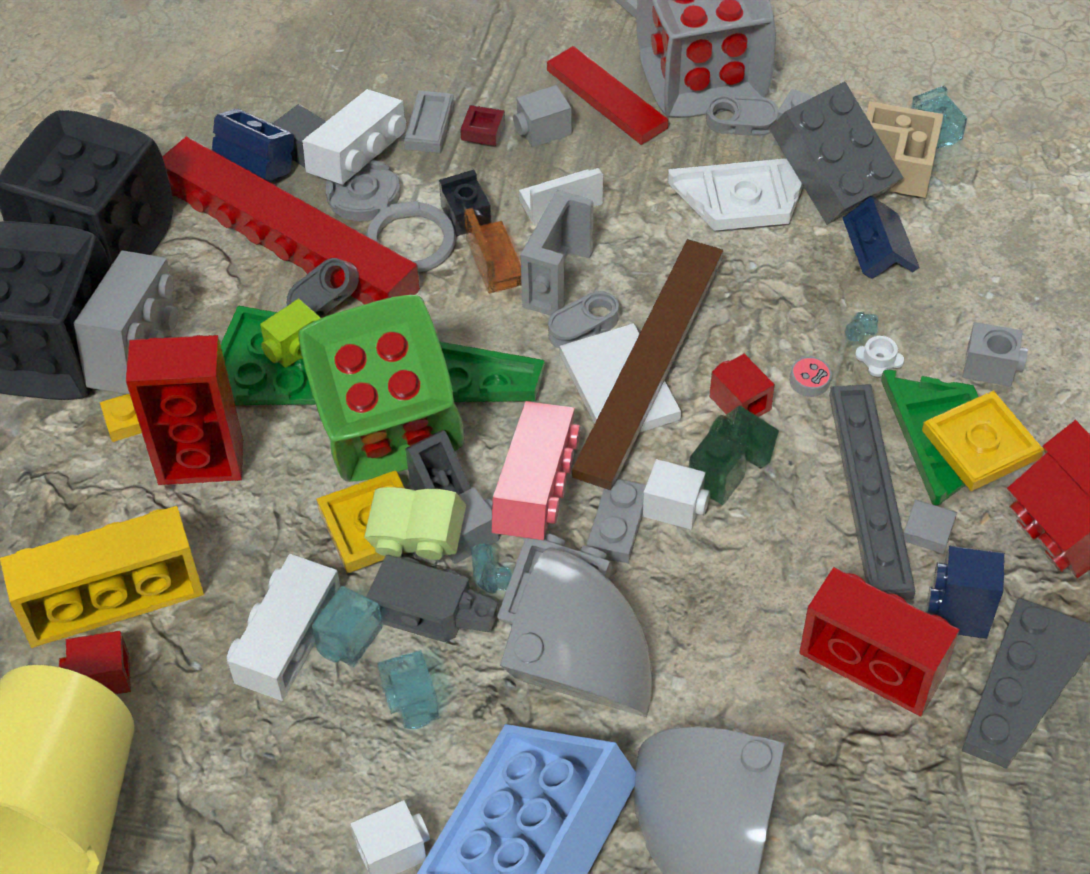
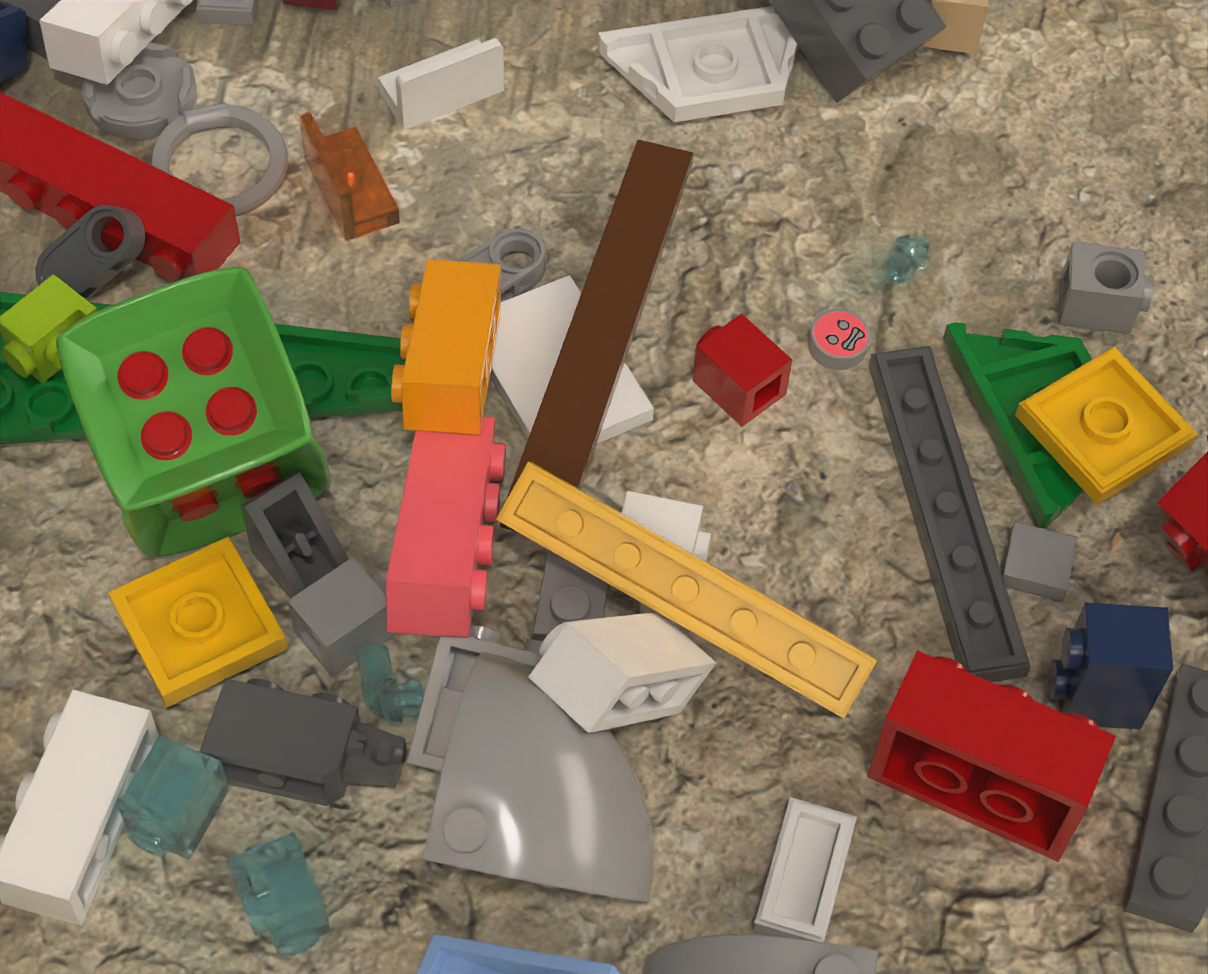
camera: 10 degrees left, 5 degrees up
(415, 521) = (266, 624): yellowish green brick -> none
(462, 193) = (292, 89): black brick -> none
(548, 361) = (448, 347): none -> light orange brick
(562, 230) = (451, 137): light grey panel -> none
(640, 566) = (620, 669): none -> white brick
(690, 524) = (687, 589): none -> yellow tile
(722, 462) = (726, 487): clear green brick -> none
(749, 431) = (752, 441): clear green bracket -> none
(753, 700) = (805, 872): none -> white tile
(878, 238) = (916, 120): dark blue panel -> none
(879, 355) = (940, 288): white plate -> none

